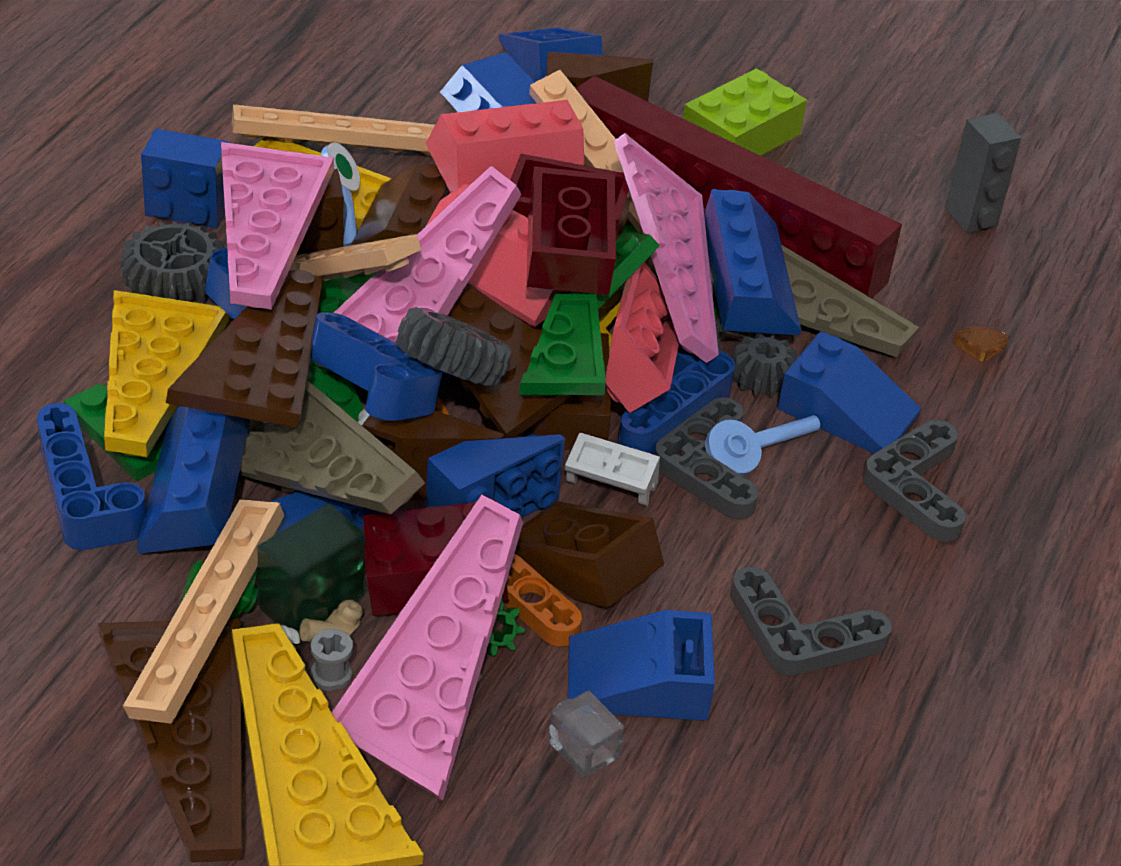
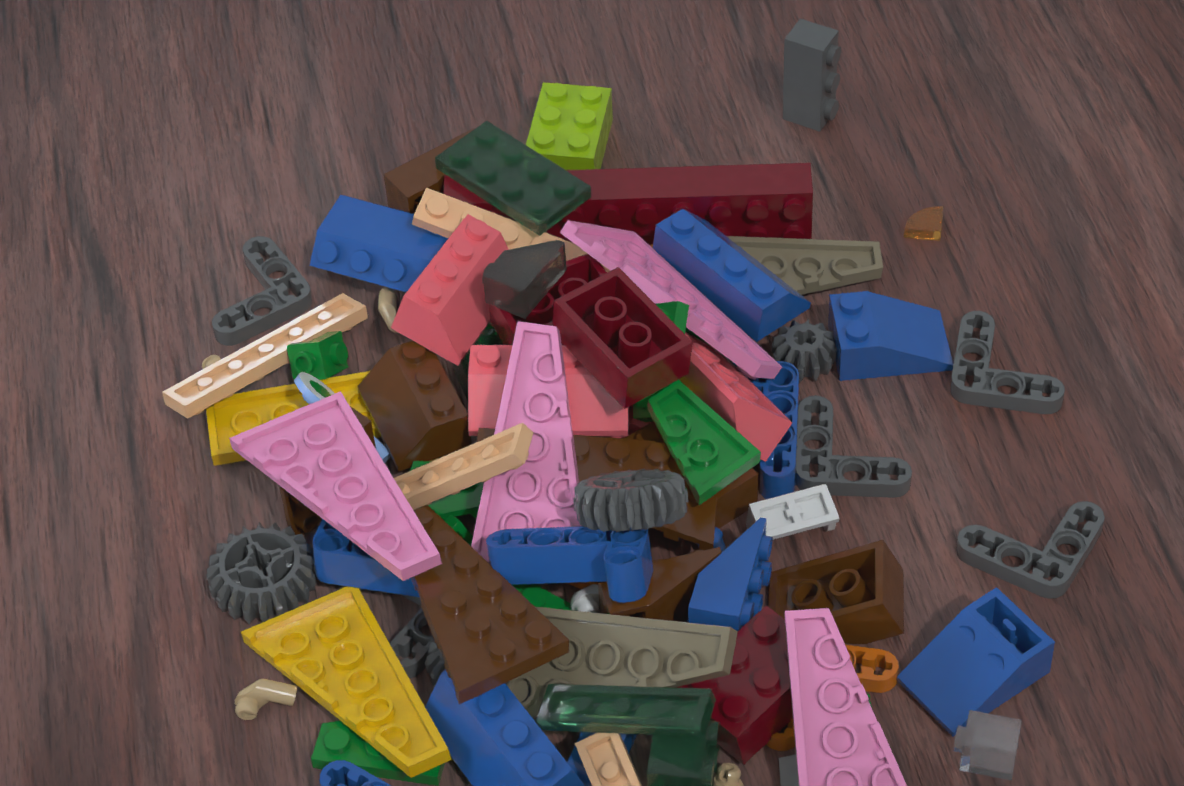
camera: 30 degrees left, 5 degrees up
(81, 338) = (260, 693): none -> tan arm
(183, 178) = (196, 487): blue piece -> none
(291, 492) = (626, 709): none -> clear green plate
(378, 152) = (320, 356): none -> green bracket
(397, 106) = (274, 296): none -> dark grey beam
(531, 46) = (351, 164): blue slope -> none
(551, 147) = (524, 276): none -> clear smoke slope
(641, 101) = (513, 177): none -> clear green plate
(740, 447) = (850, 432): light blue piece -> none

